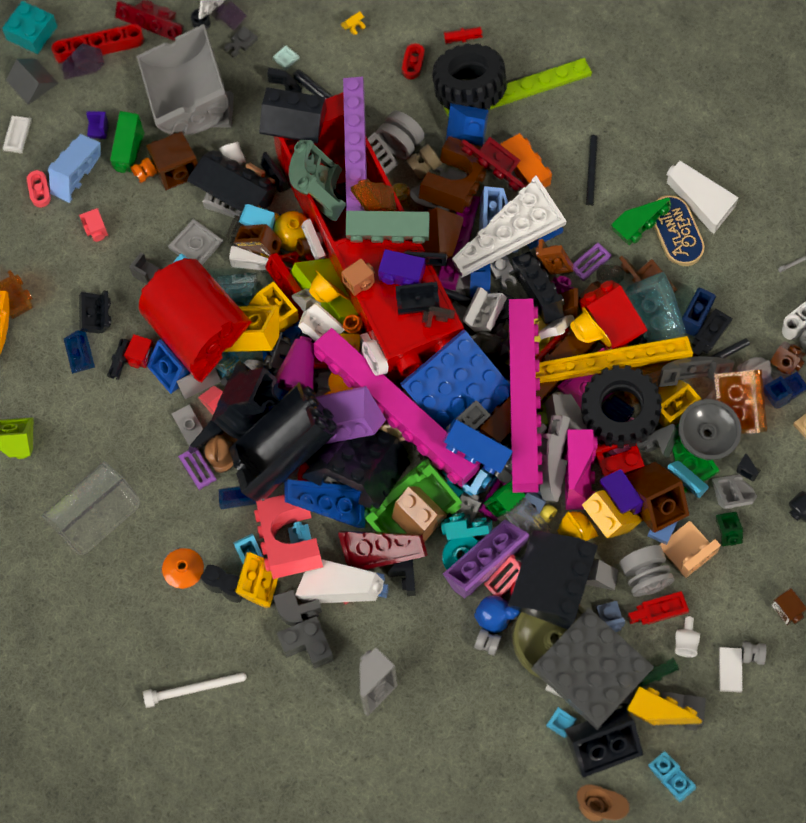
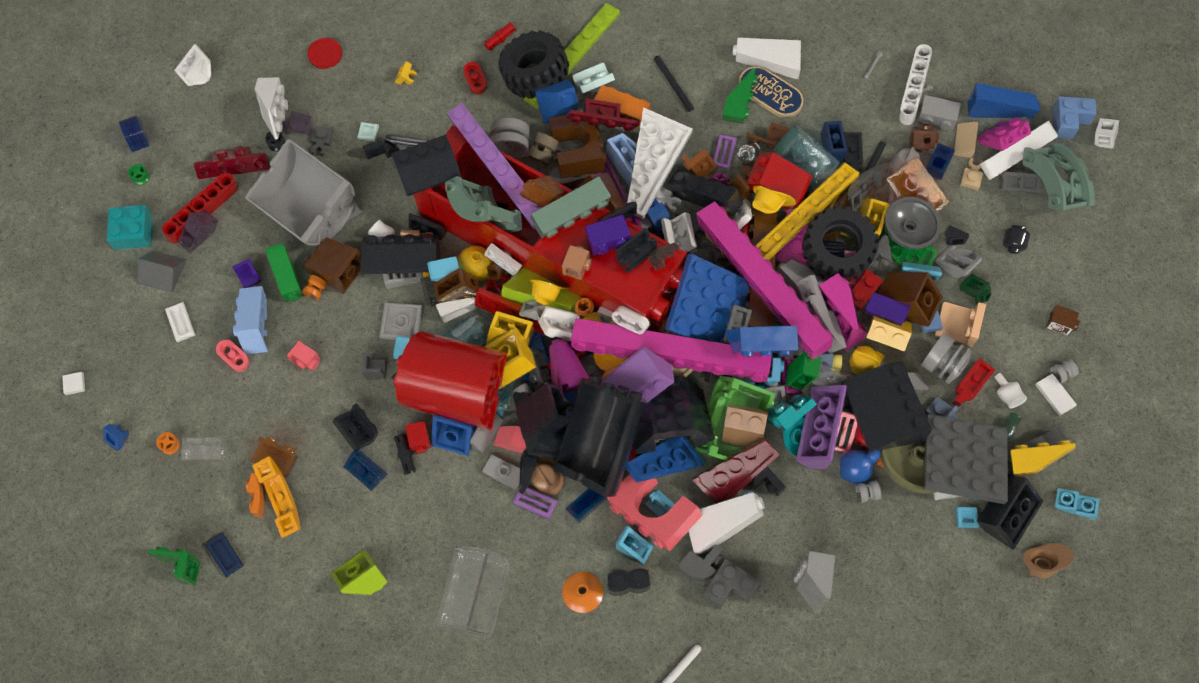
camera: 35 degrees left, 0 degrees up
(255, 582) = (656, 562): yellow slope -> none
(517, 121) = (592, 78): none -> light aqua bracket

